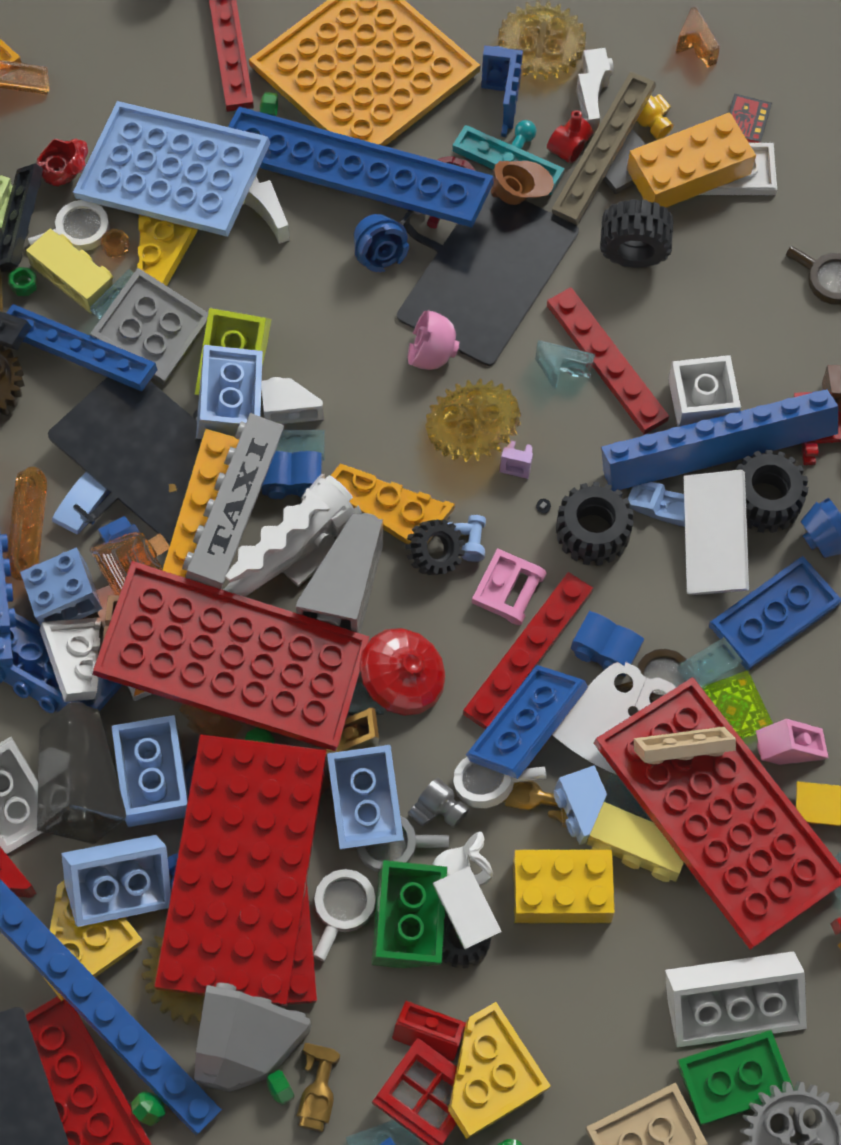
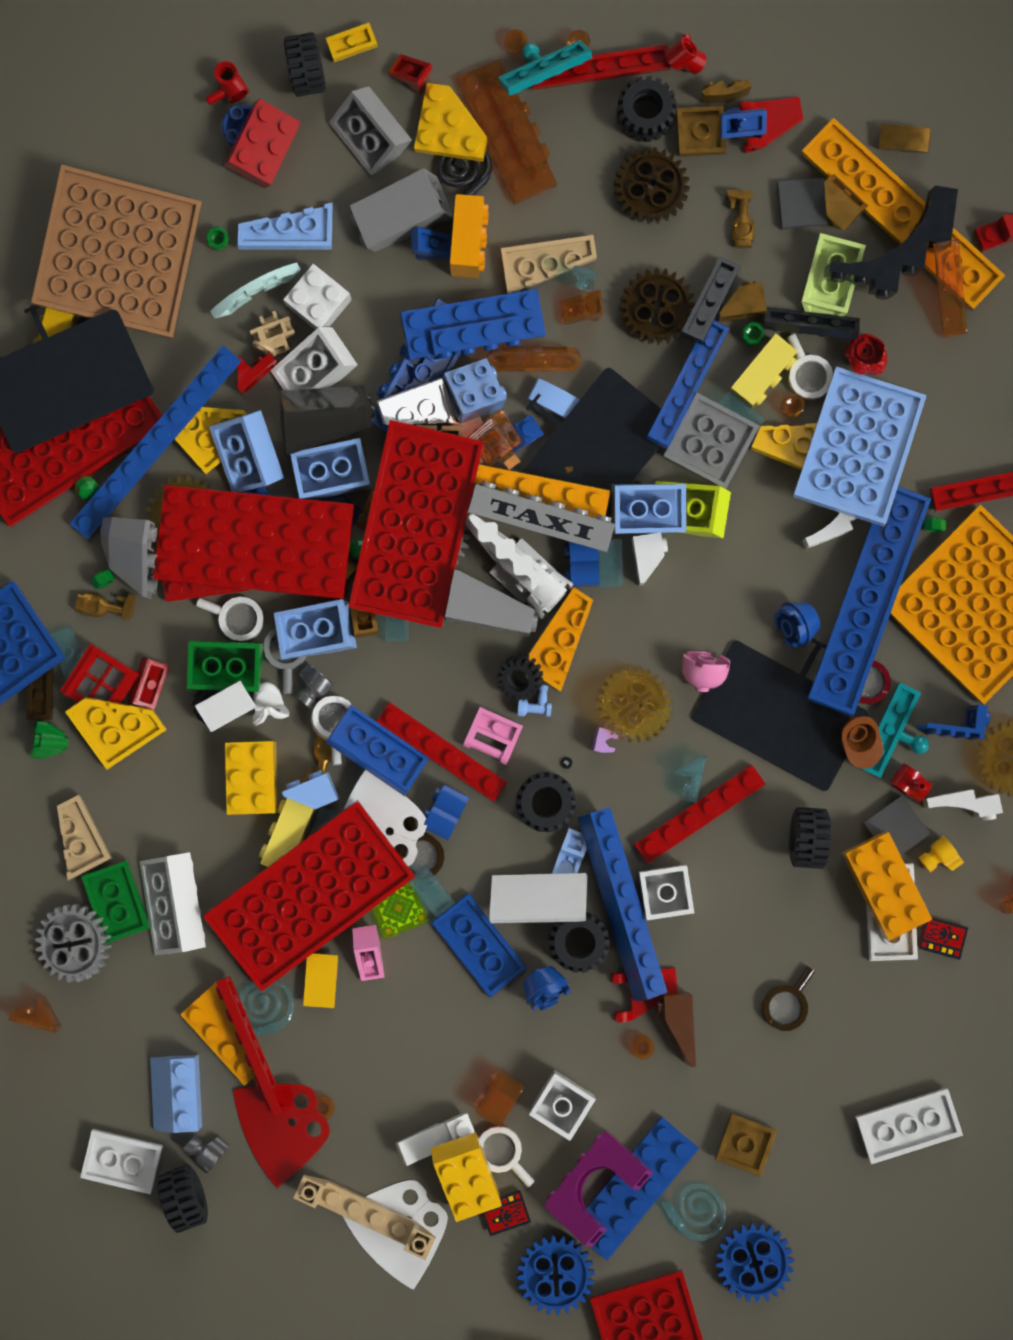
camera: 90 degrees right, 20 degrees up
(402, 671) = (417, 655): red hat -> none
(603, 147) = (900, 811): dark tan plate -> none
(684, 745) = (353, 868): tan plate -> none

